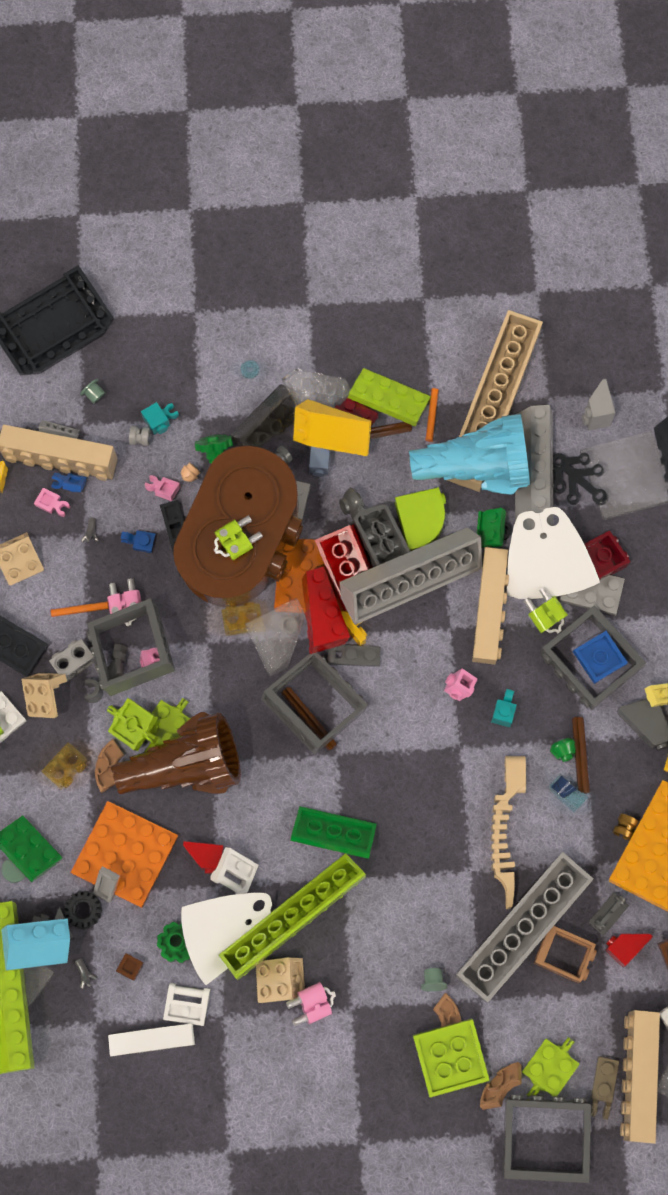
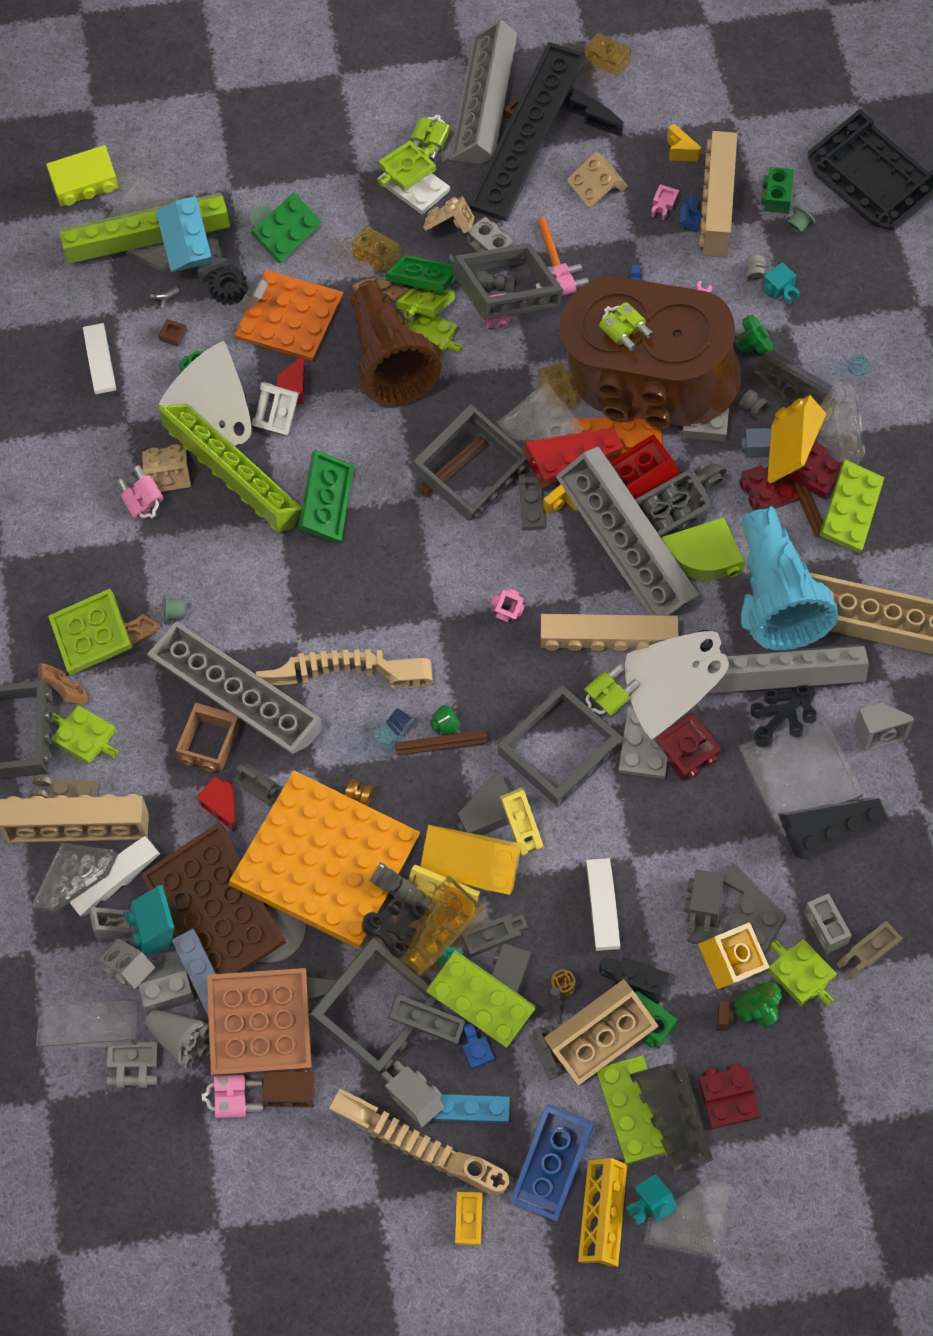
camera: 85 degrees right, 10 degrees down
(56, 429) = (746, 192): light grey slope -> none
(59, 400) = (778, 190): none -> green brick
(90, 531) = (639, 241): flat silver bar -> none
(103, 724) = (421, 273): none -> green plate
(186, 1011) = (129, 386): white plate -> none
(364, 466) = (766, 494): none -> dark red plate
(432, 415) = (839, 555): orange bar -> none
(491, 527) = (703, 622): green plate -> none
(504, 710) = (481, 654): teal brick -> none
(600, 657) = (556, 743): blue plate -> none

